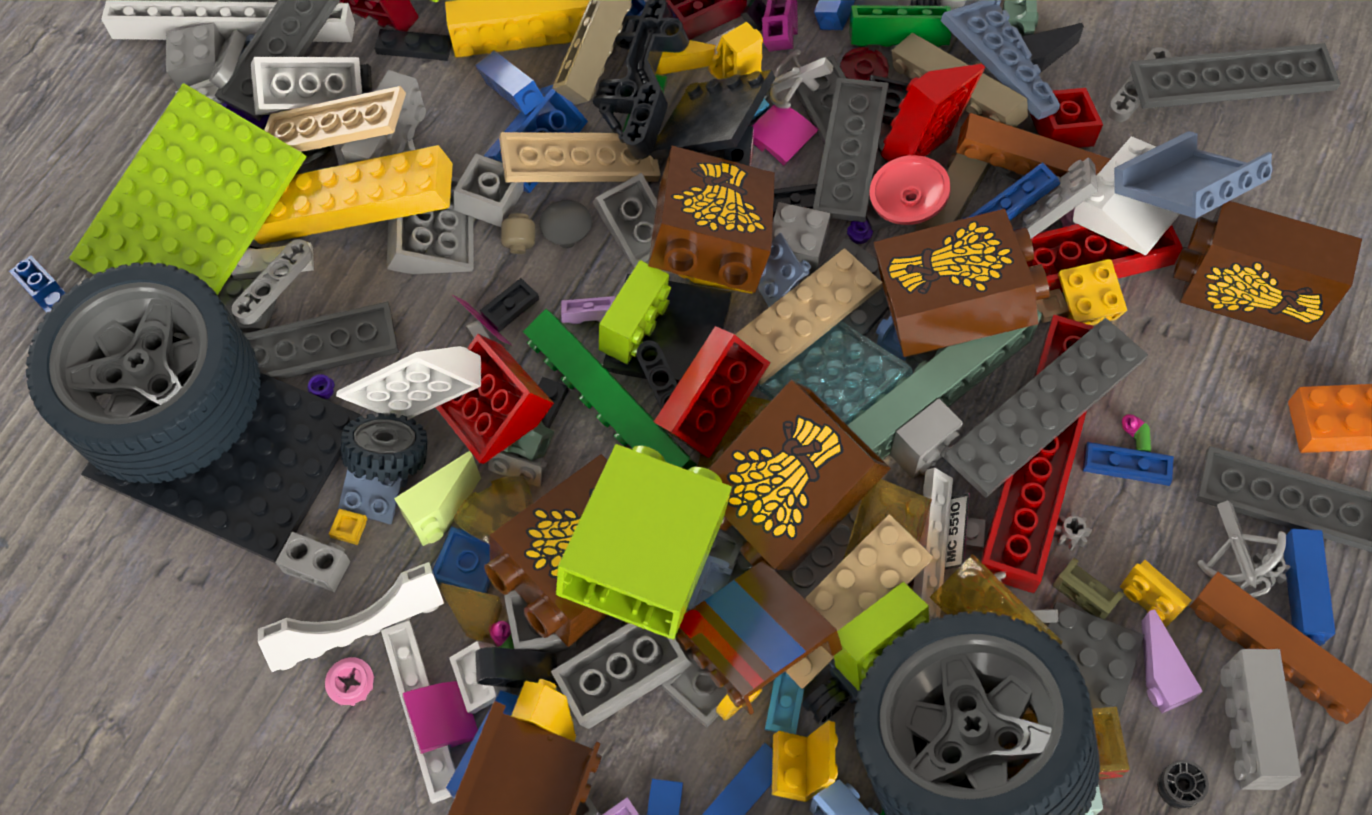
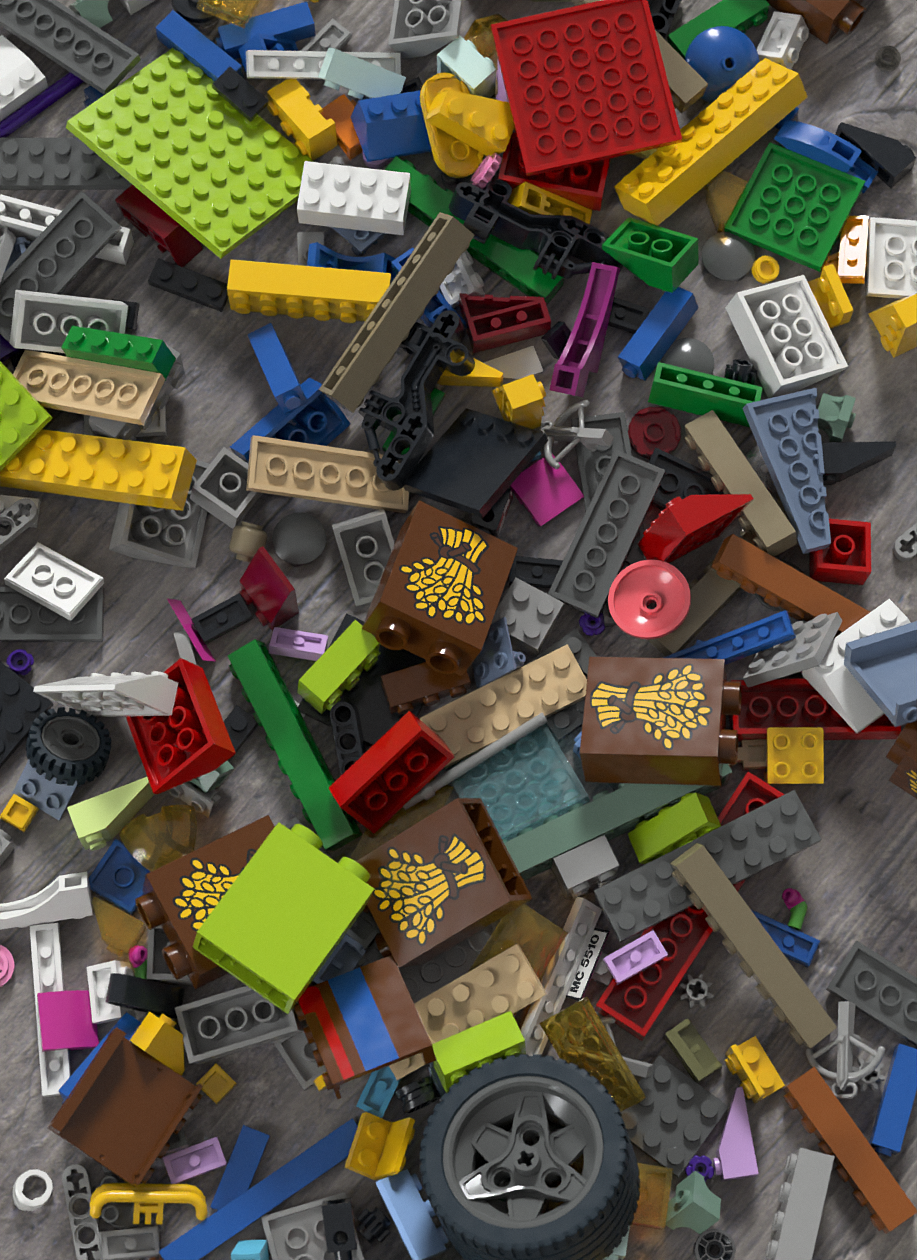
camera: 10 degrees right, 10 degrees up
(339, 306) = (54, 581): none -> white tile
(357, 80) = (119, 349): none -> green brick
(549, 262) = (268, 591): none -> dark red slope
(613, 743) = (216, 1083): none -> yellow tile
(721, 308) = (421, 686): none -> reddish brown brick
(752, 404) = (428, 790): none -> light grey bar
(1000, 380) = (674, 827): none -> lime brick
(1007, 505) = (635, 957): none -> lavender plate
(1119, 467) = (753, 945): none -> dark tan brick
(1134, 712) = (704, 1162): none -> dark purple plate
(1148, 741) = (693, 1205): none -> sand green brick

